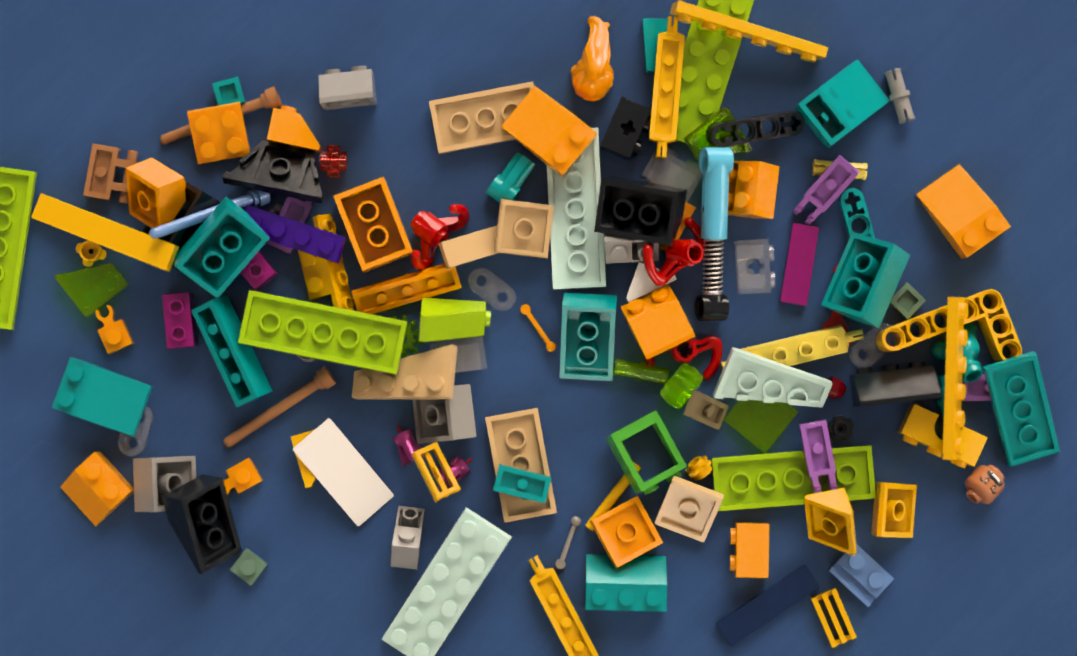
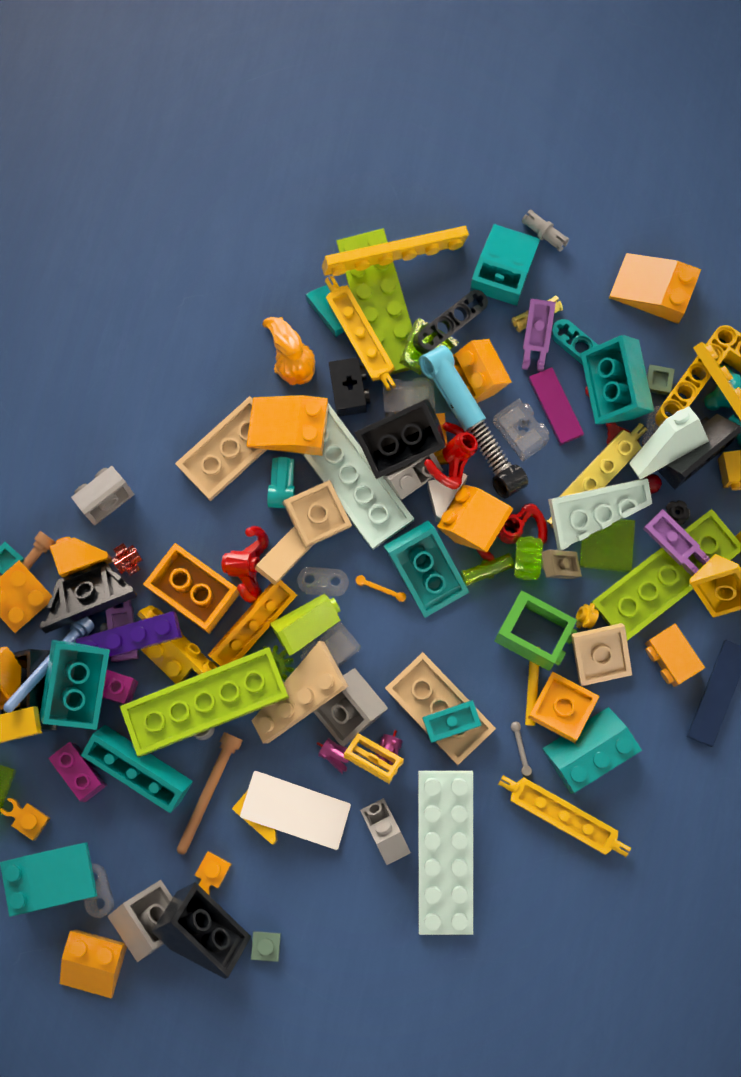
camera: 25 degrees left, 10 degrees down
(871, 366) = (672, 440): none -> light aqua slope

